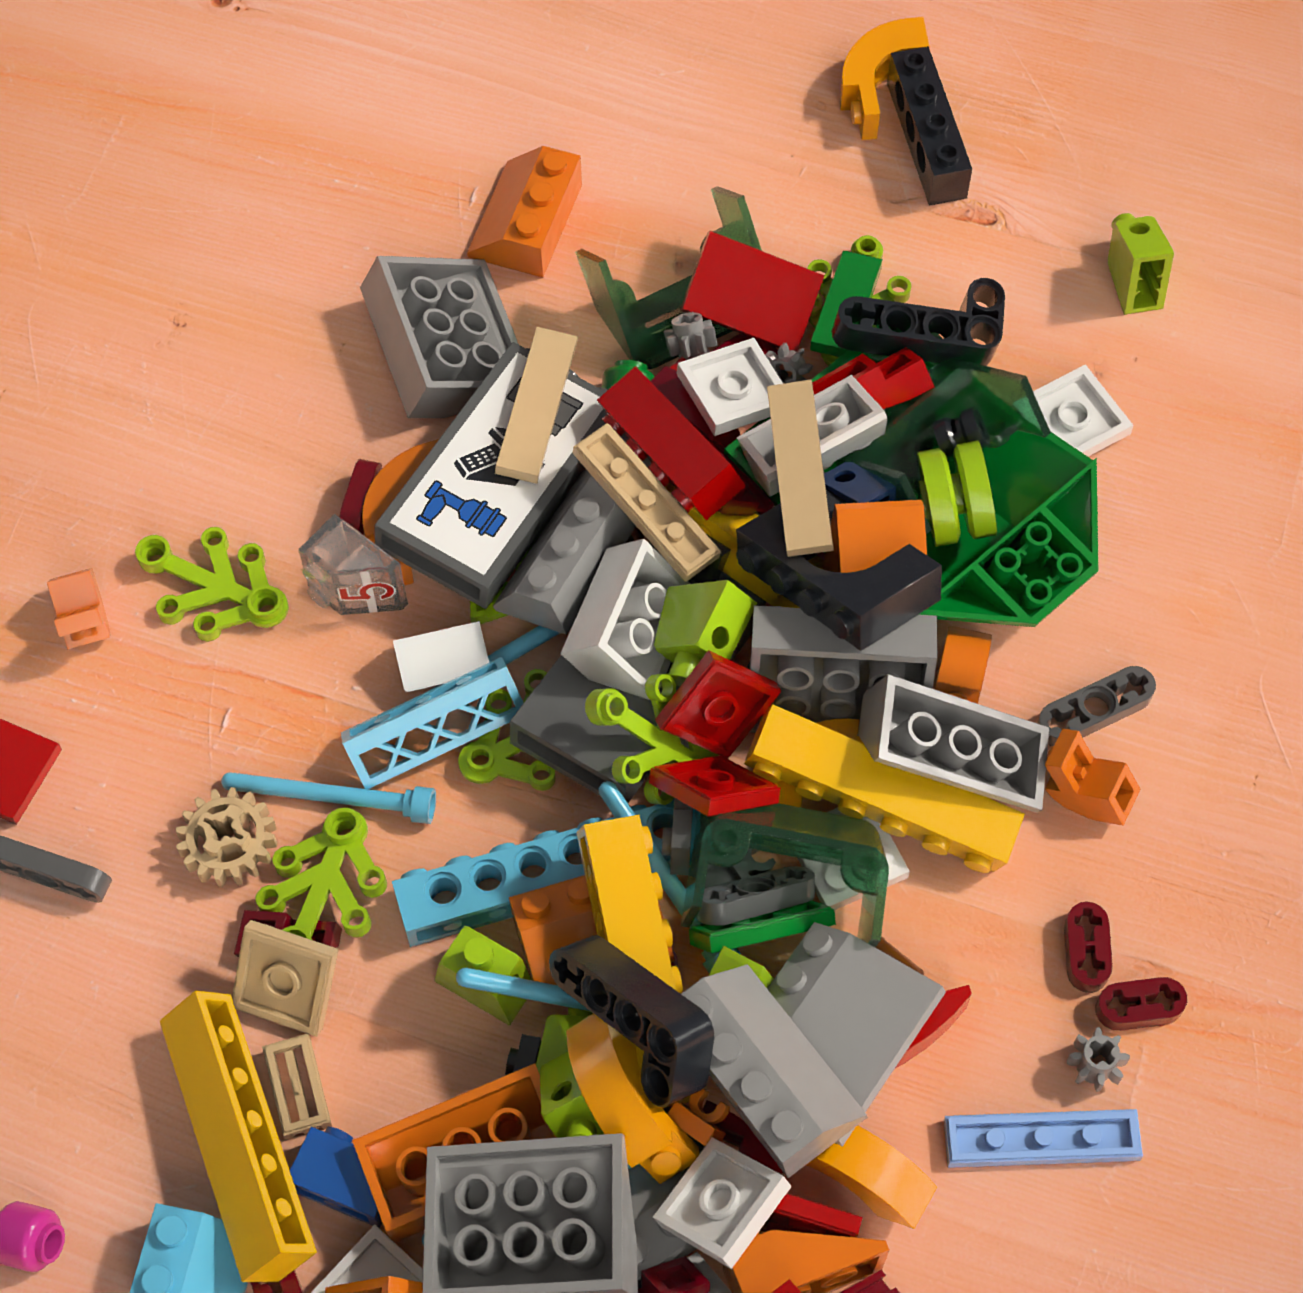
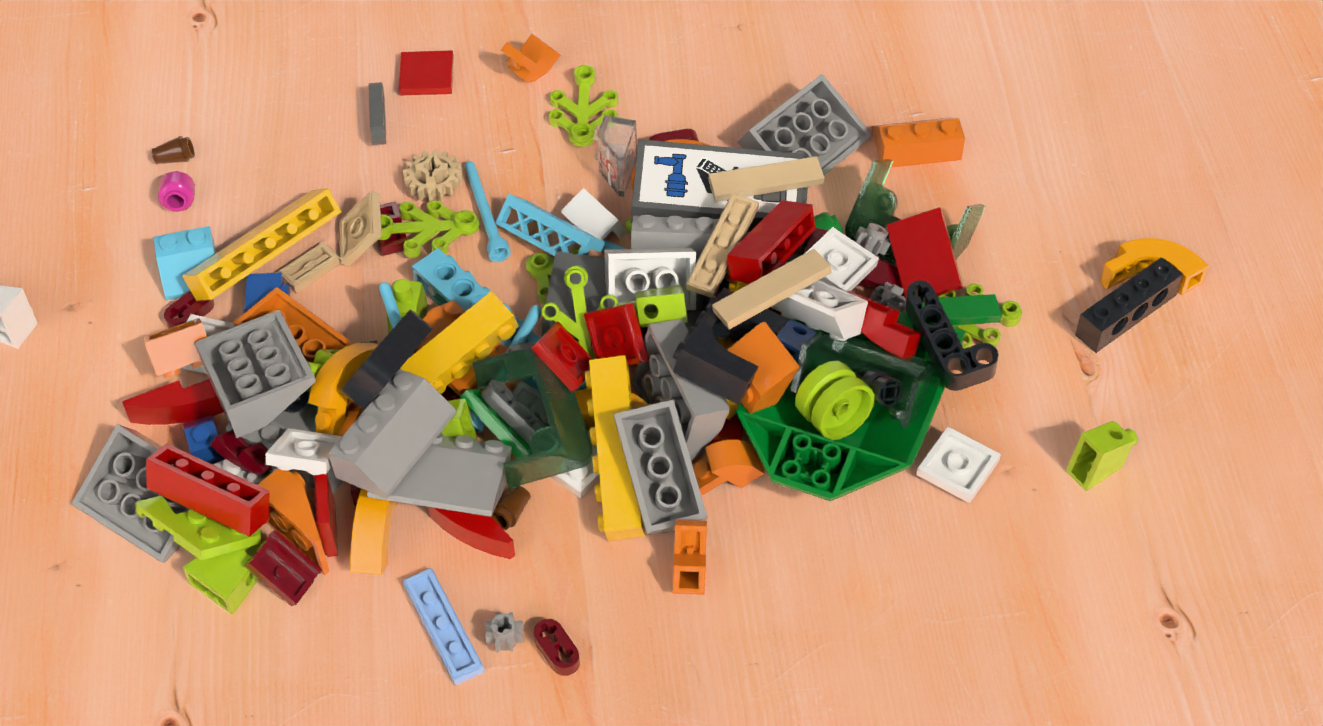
camera: 65 degrees right, 10 degrees down
(1098, 946) = (580, 605): dark red beam -> none
(1107, 690) = (756, 565): dark grey beam -> none

